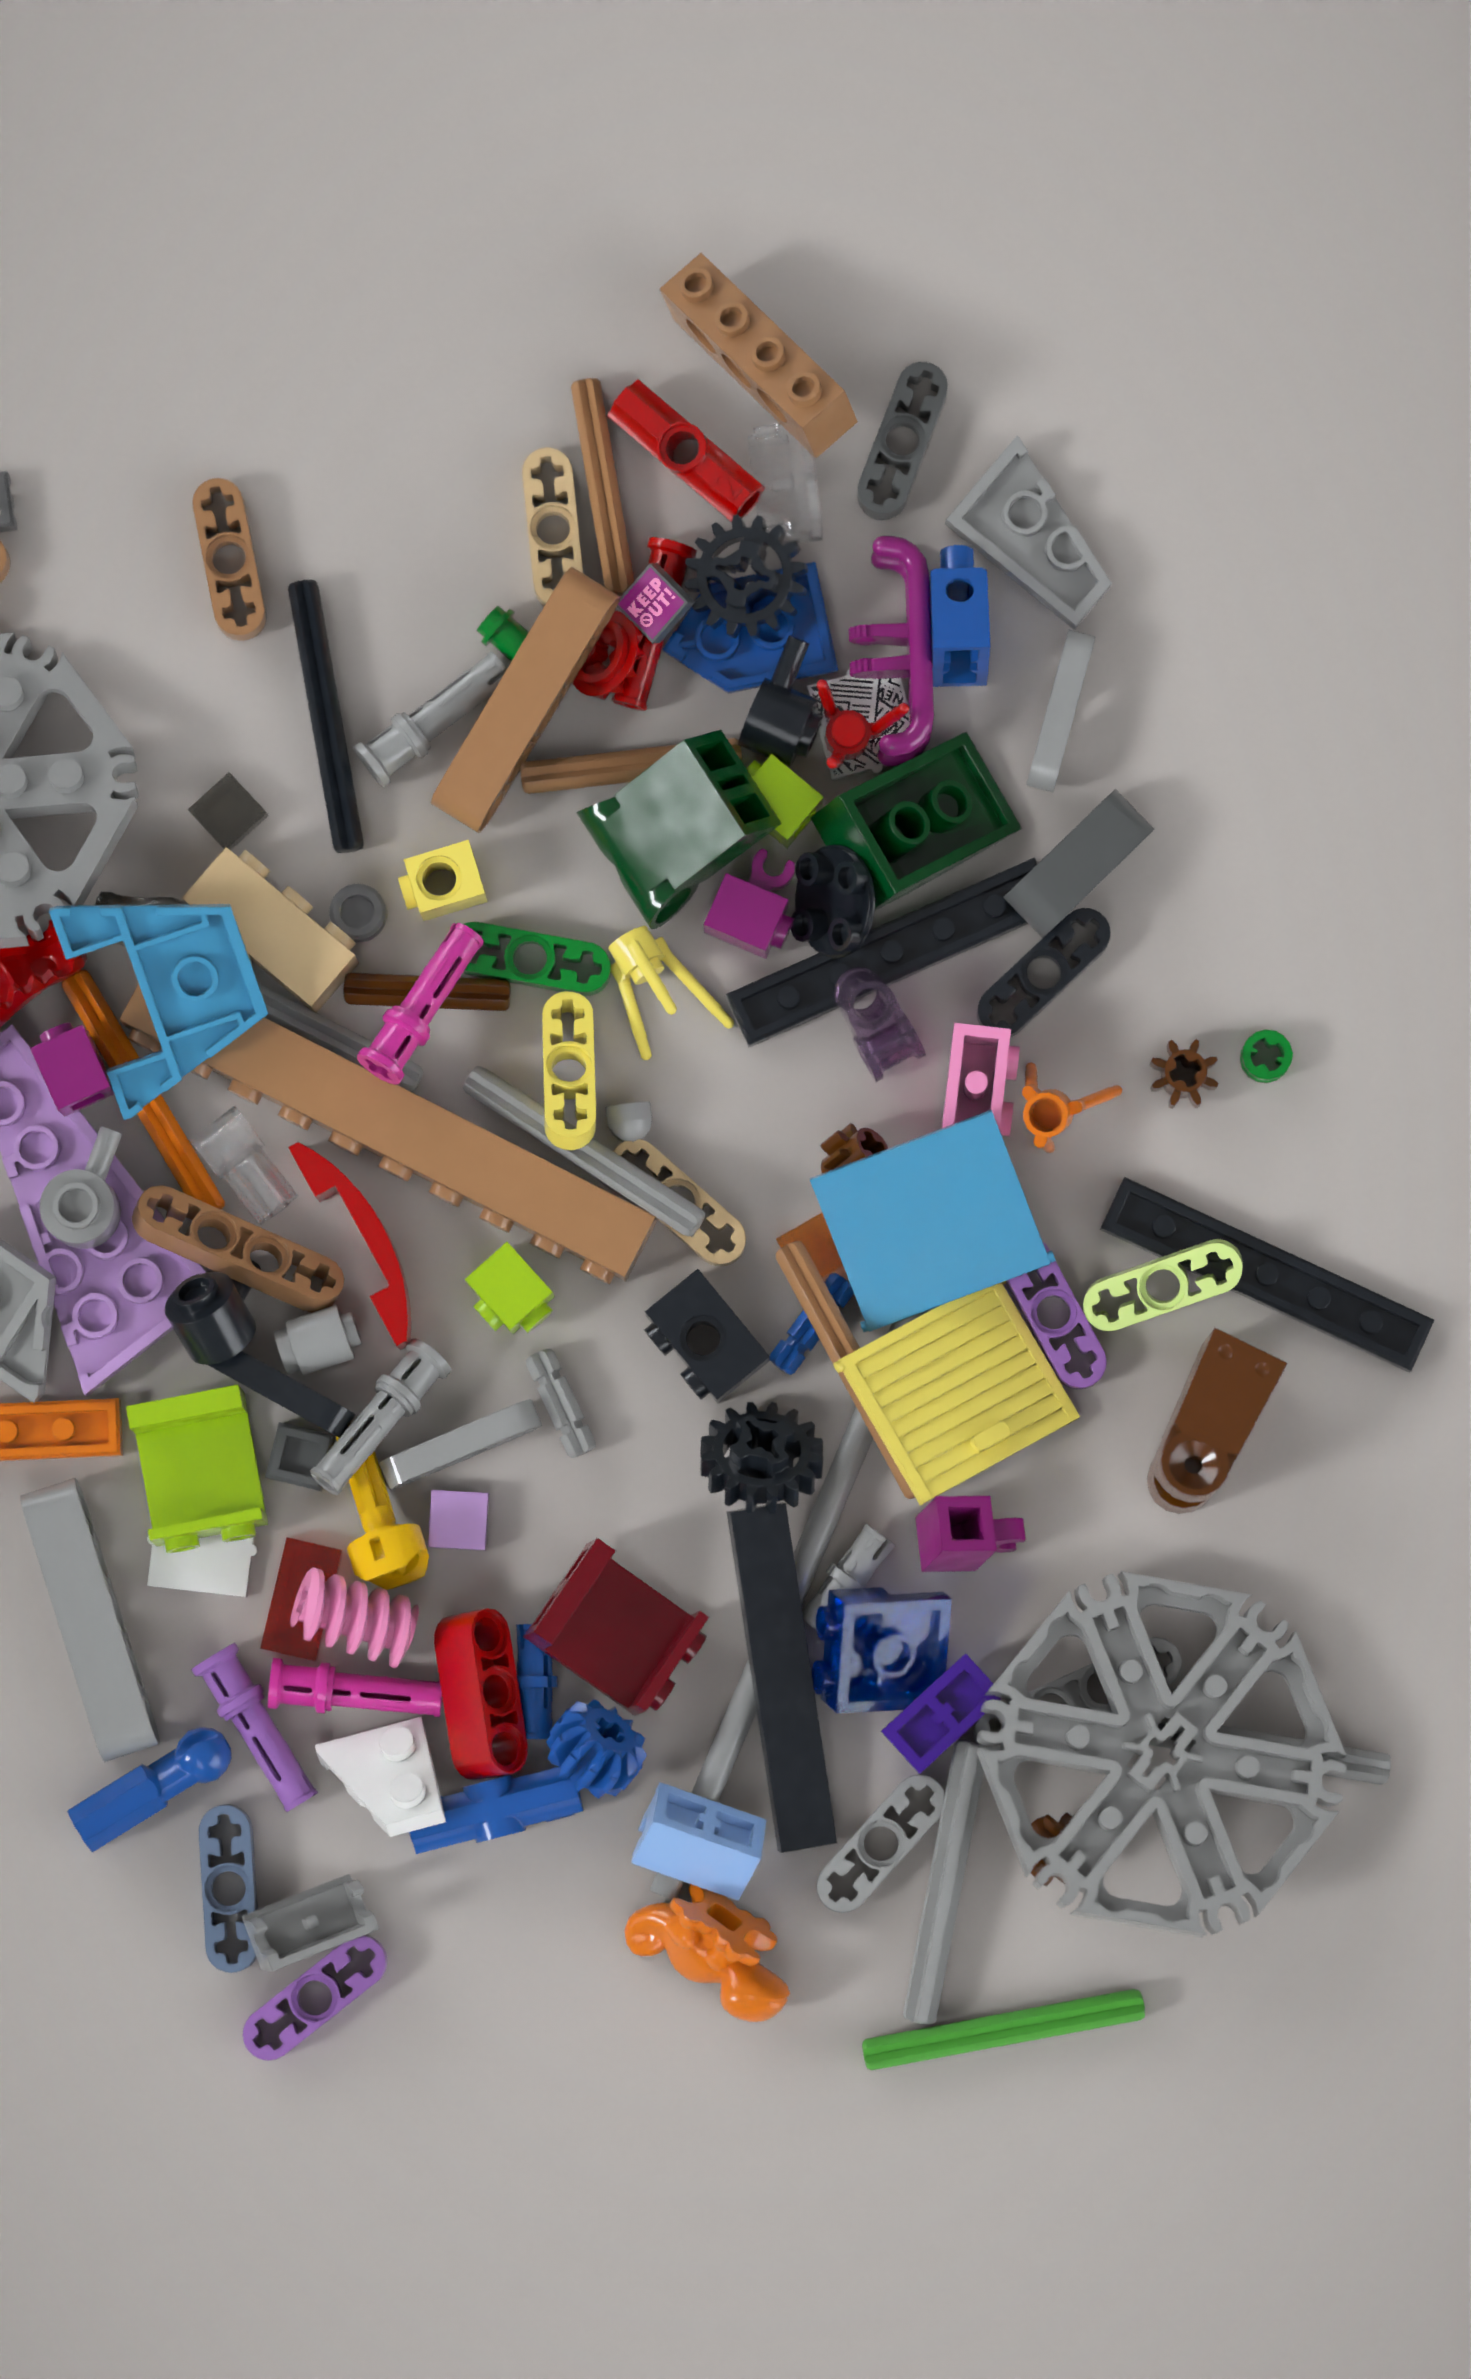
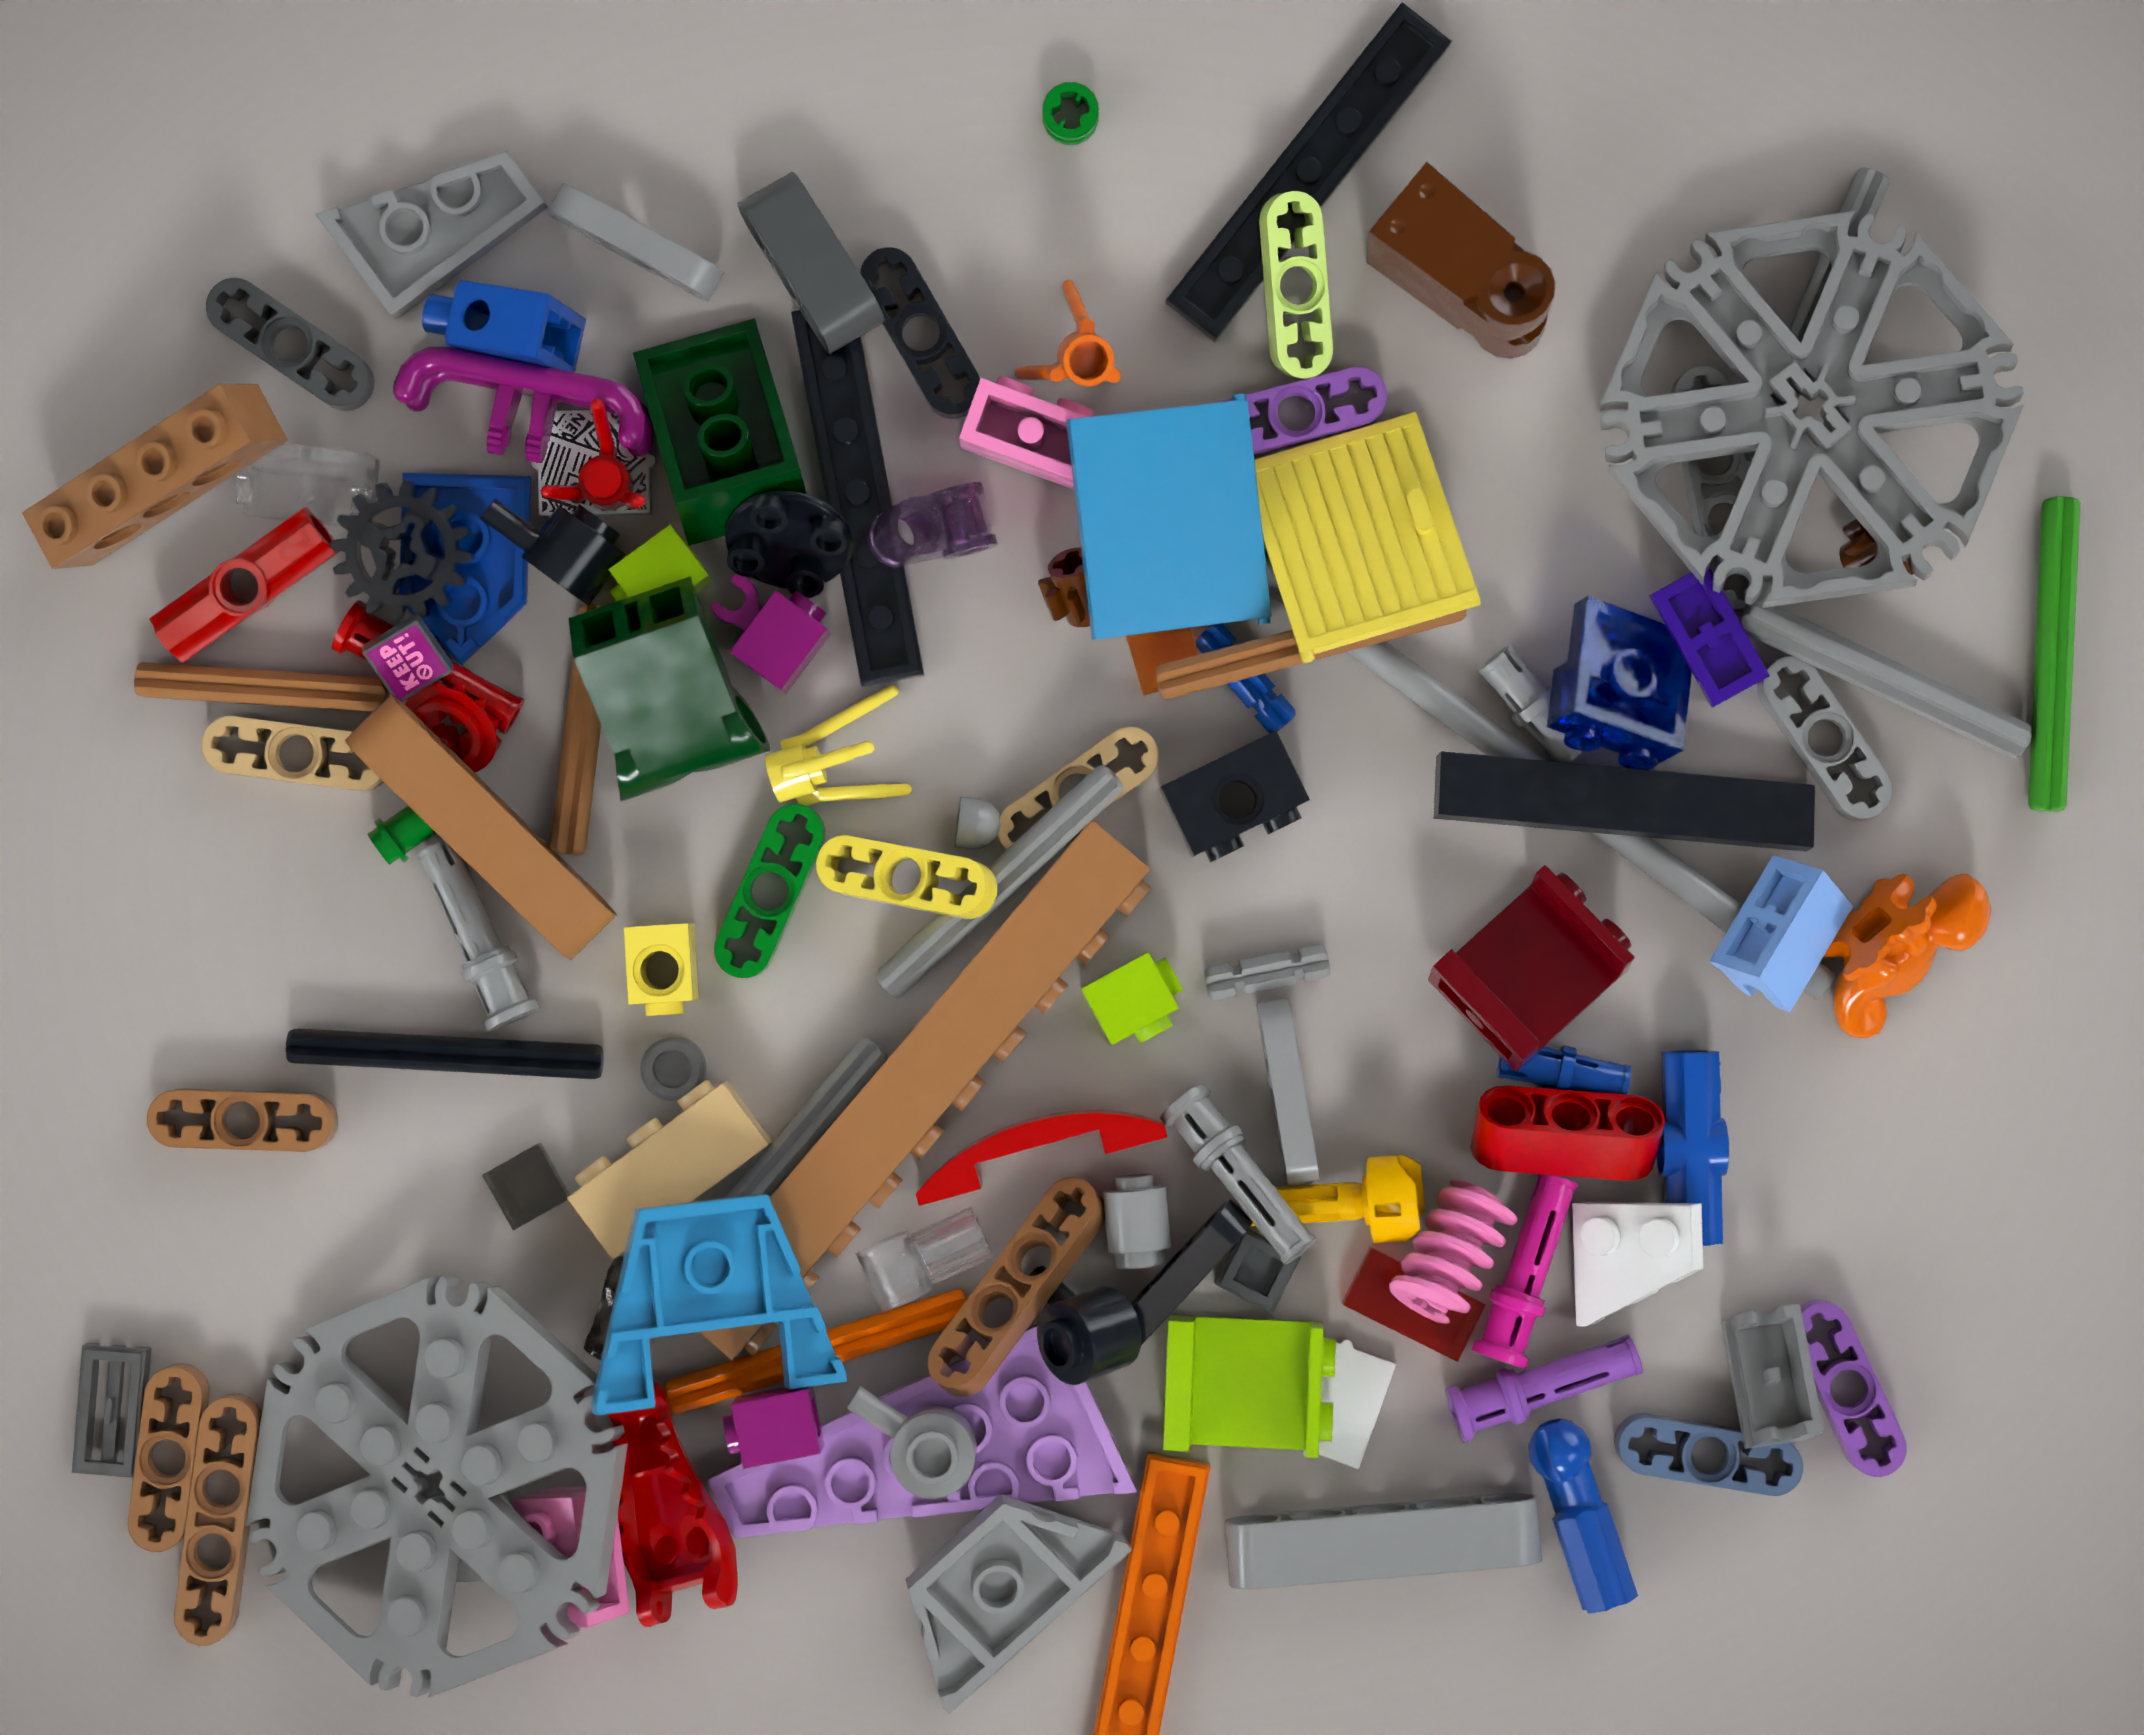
camera: 80 degrees left, 5 degrees up
(392, 990) = (779, 1013): reddish brown axle -> none
(408, 1024) = (814, 1041): dark pink pin -> none
(458, 1520) = (1368, 1113): lavender tile -> none
(596, 1748) = (1657, 1021): blue gear -> none
(761, 1457) = (1383, 766): black gear -> none
(962, 1534) = (1517, 567): magenta brick -> none
(1179, 1089) = (1082, 194): reddish brown gear -> none

